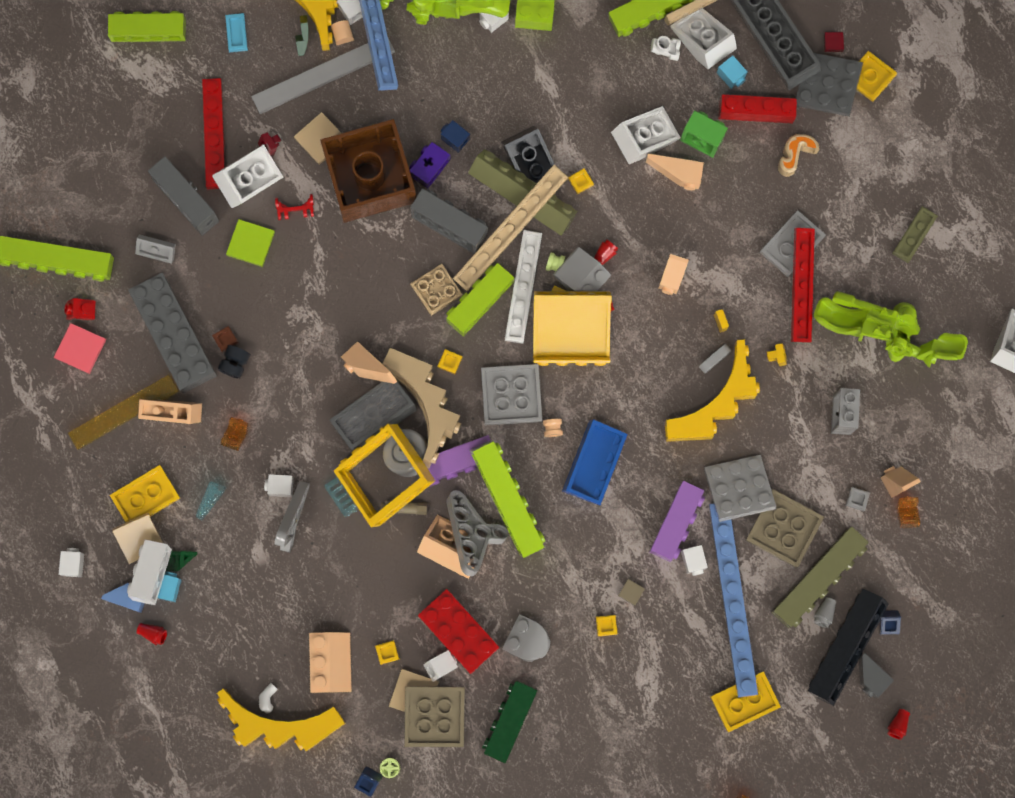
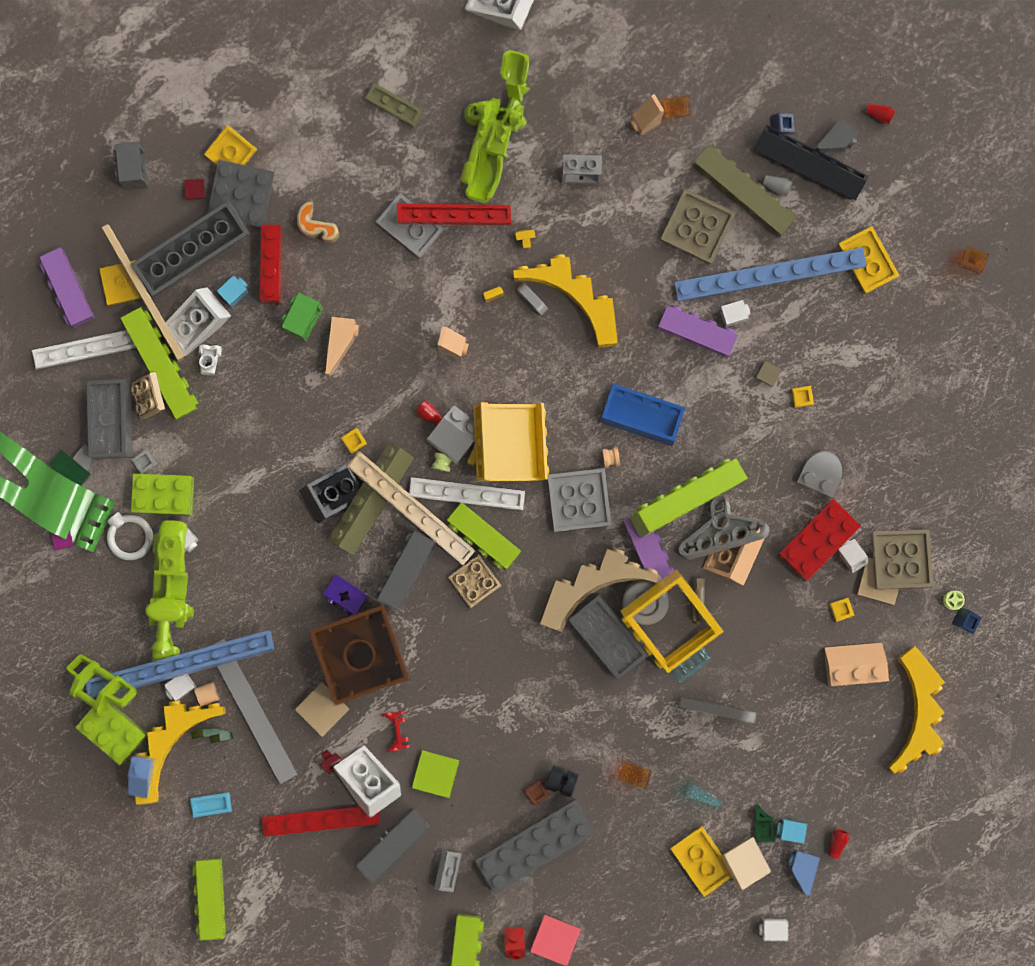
camera: 90 degrees left, 5 degrees up
(121, 413) = (617, 890): clear yellow tile -> none
(149, 572) = (782, 849): white brick -> none
(170, 411) = (616, 841): light nougat slope -> none
(264, 698) = (896, 726): white arm -> none
(279, 485) = (684, 726): white brick -> none
(365, 365) = (559, 648): light nougat slope -> none
(450, 361) = (548, 563): yellow tile -> none
(454, 136) = (313, 571): dark blue brick -> none
(510, 722) = (902, 485): dark green brick -> none
(645, 134) = (303, 376): white slope -> none
(740, 488) = (661, 271): light grey plate -> none
(857, 499) = (664, 156): light grey tile -> none

